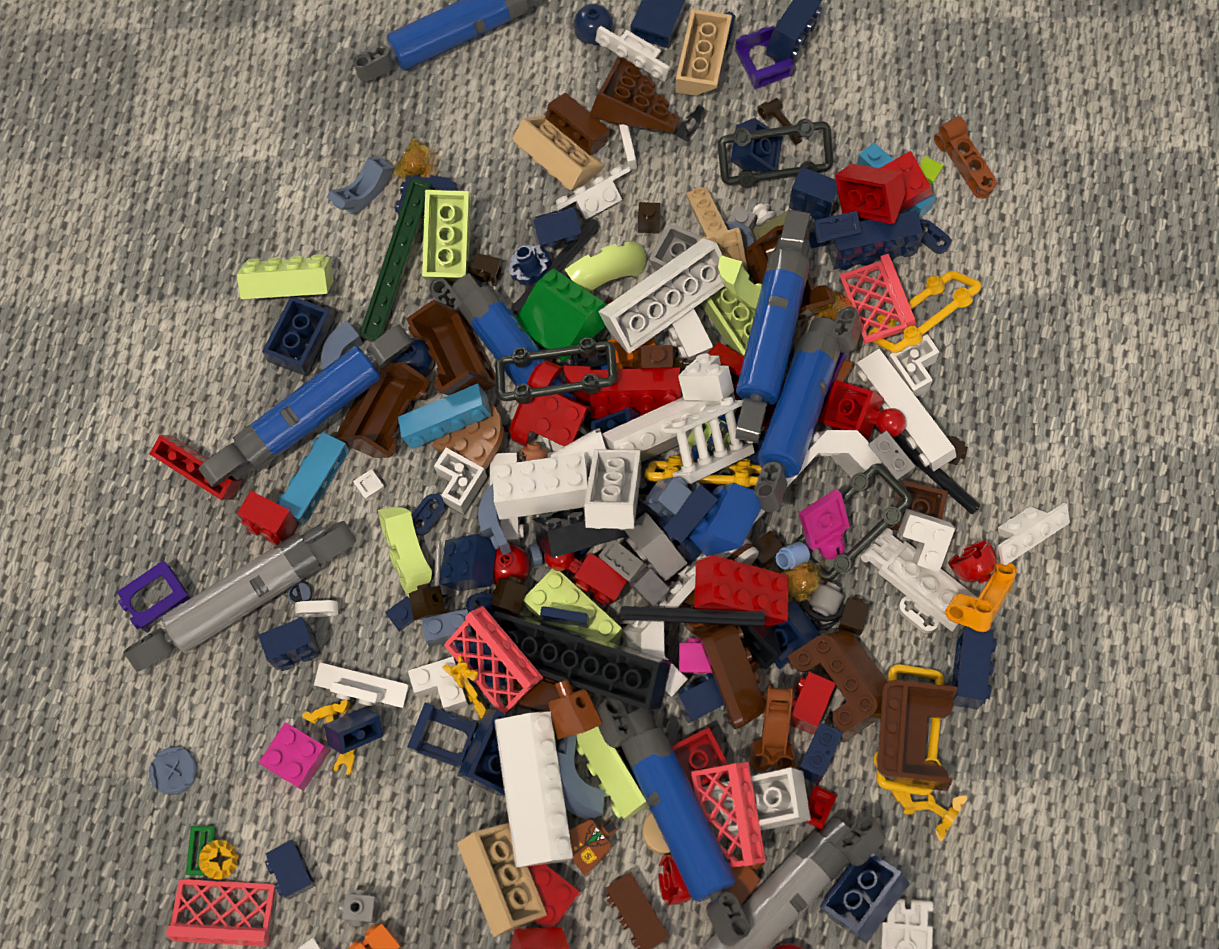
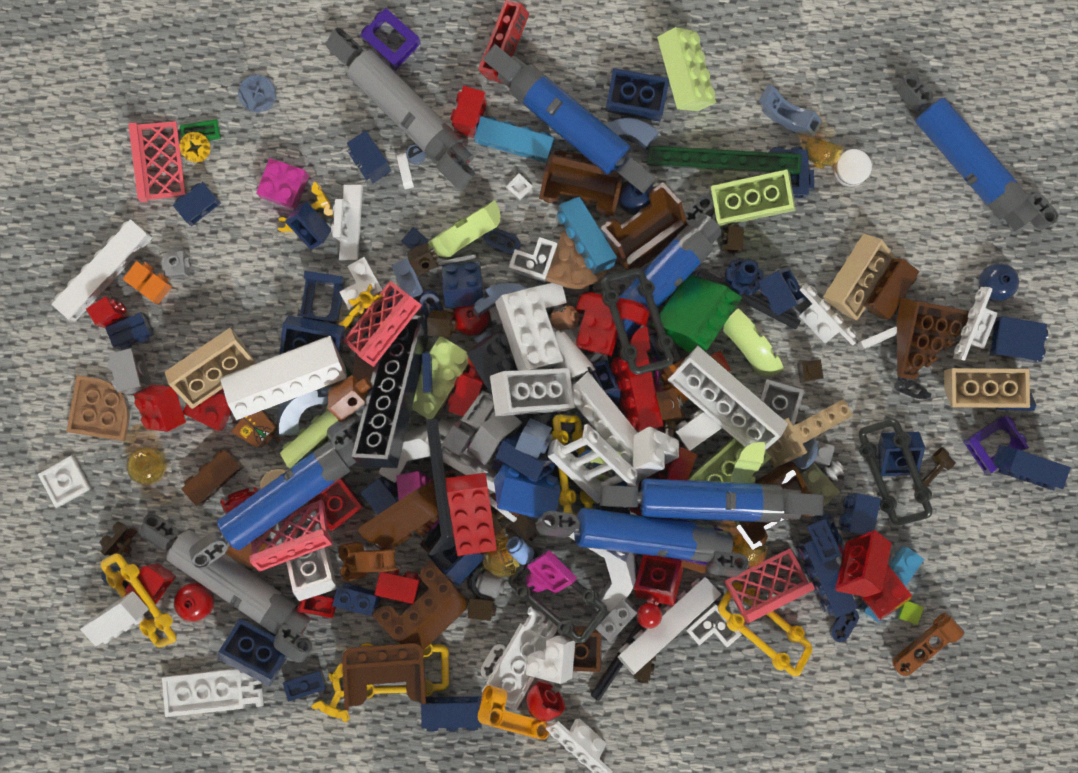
camera: 70 degrees right, 15 degrees up
(439, 137) = (852, 168): none -> white head
(914, 845) = (304, 685): none -> dark blue plate

